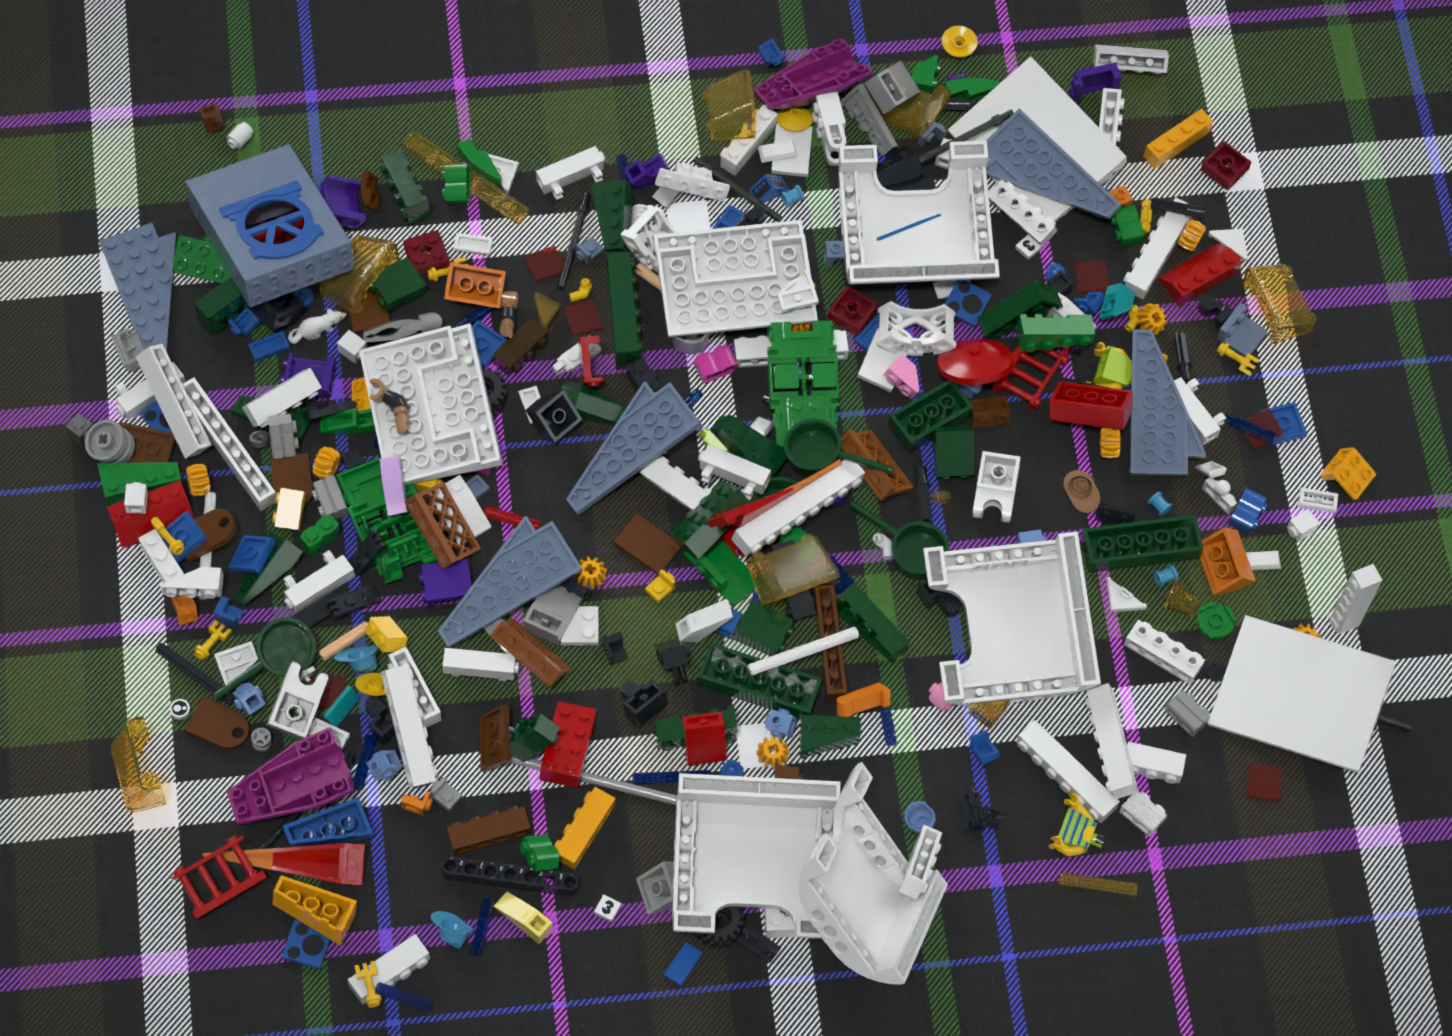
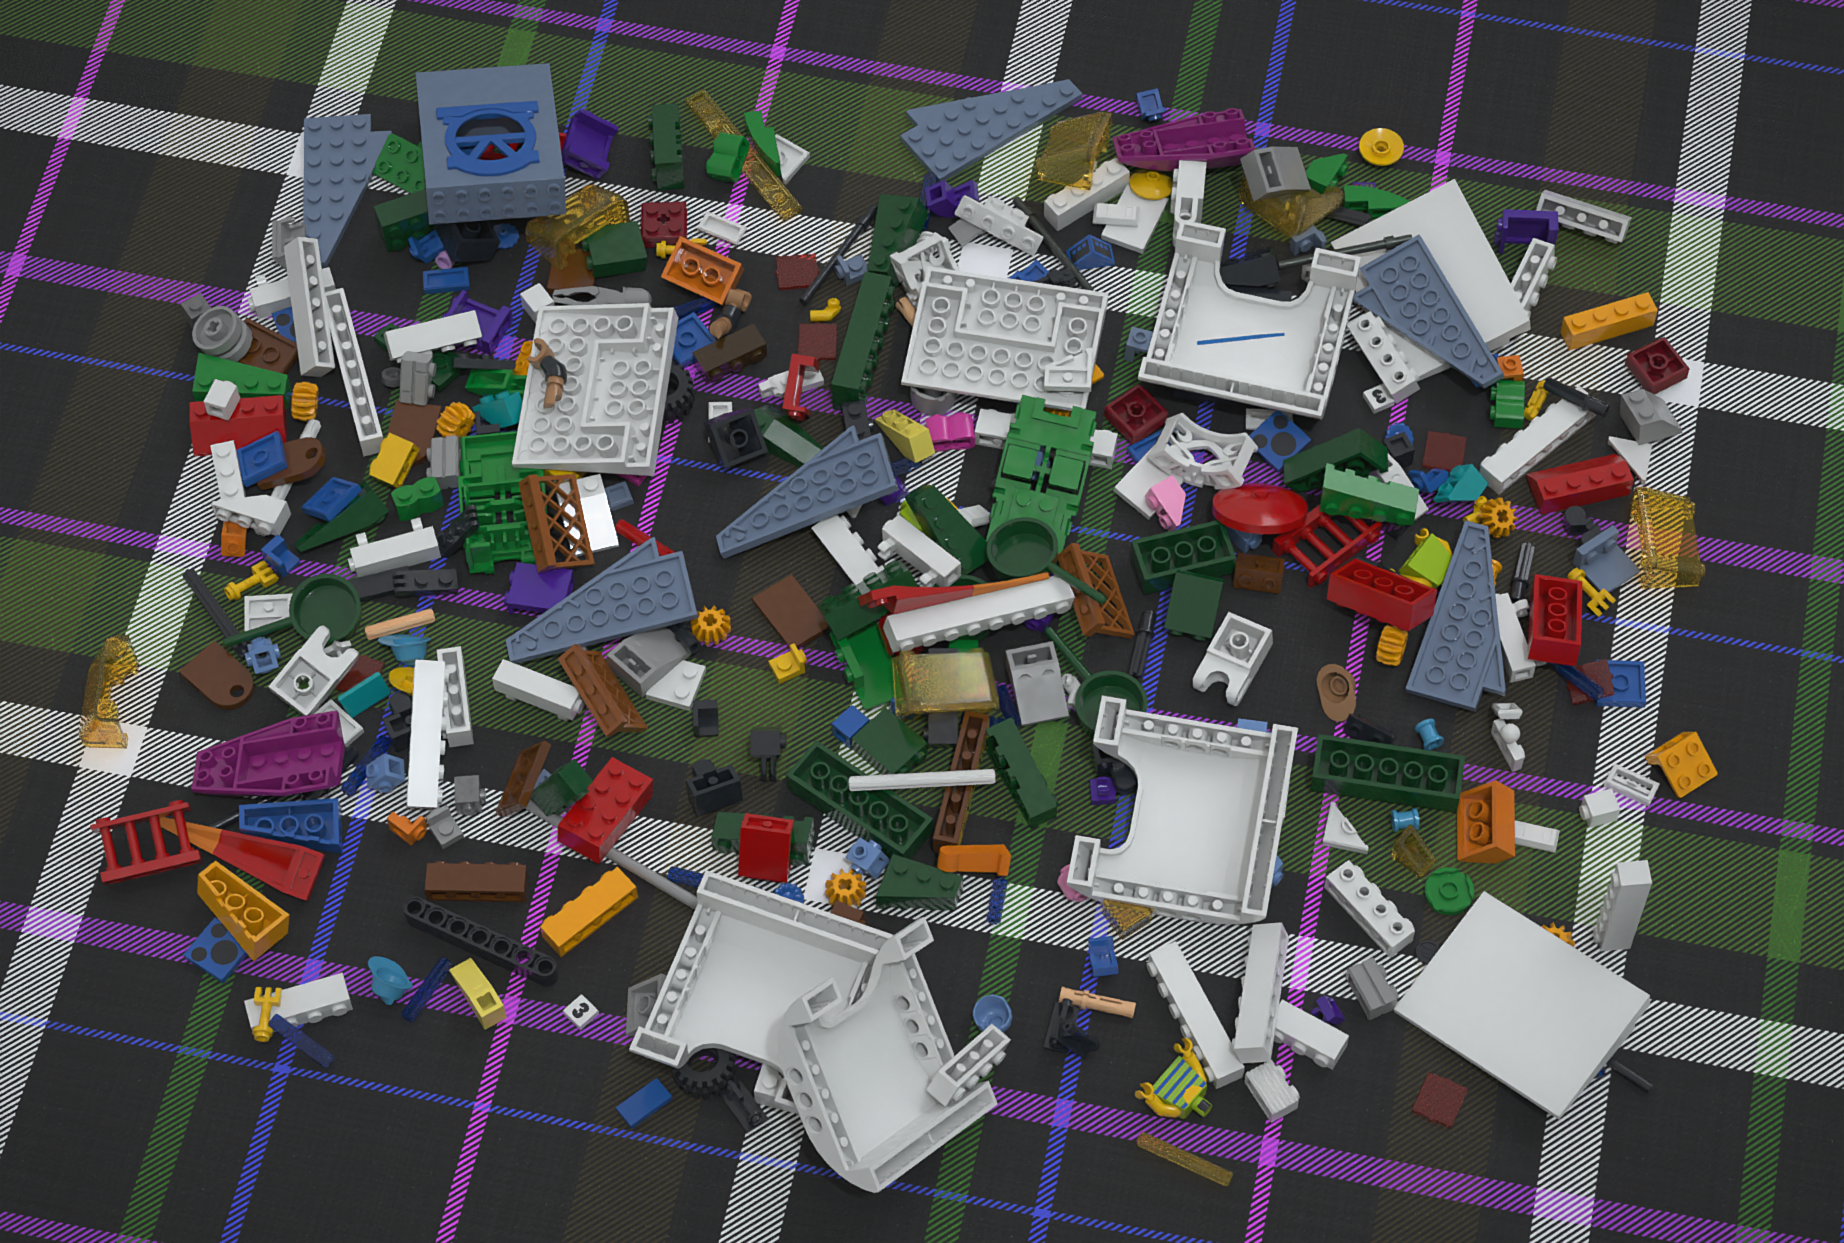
camera: 25 degrees right, 5 degrees down
(176, 546) = (247, 465): yellow hinge -> none
(180, 709) = (184, 647): white tile -> none
(212, 118) = (482, 20): reddish brown bracket -> none
(239, 135) = (504, 46): white brick -> none
(262, 330) = (444, 261): none -> lavender hinge
(263, 735) = (260, 700): light grey wheel -> none
(313, 327) = (503, 271): white animal -> none
(359, 442) = (502, 409): none -> teal slope
(368, 189) = (625, 139): reddish brown slope -> none
(386, 634) = (444, 627): yellow brick -> none
(393, 486) = (516, 463): lavender slope -> none
(455, 763) = (469, 794): none -> flat silver brick
(540, 852) = (523, 922): green brick -> none
(547, 310) = (777, 323): clear yellow slope -> none
(570, 170) = (865, 176): white brick -> none
(634, 111) = (967, 130): none -> sand blue wing
(683, 375) = (907, 435): none -> light yellow slope
(703, 622) = (816, 715): white slope -> none
(792, 195) = (1114, 269): dark azure bush -> none
(856, 548) = (1036, 683): none -> light grey slope
(866, 113) = (1239, 207): light grey wing -> none
(935, 618) = (1102, 791): none -> dark purple tile
(941, 497) = (1162, 653): clear yellow tile -> none
(992, 783) = (1098, 1002): none -> light nougat pin
(1163, 738) = (1330, 1010): none -> dark purple tile
(1191, 235) = (1583, 434): light orange gear -> none
(1223, 389) = (1555, 620): none -> red brick
(1232, 208) = (1647, 417): none -> light grey slope
(1247, 511) = (1536, 772): blue brick -> none

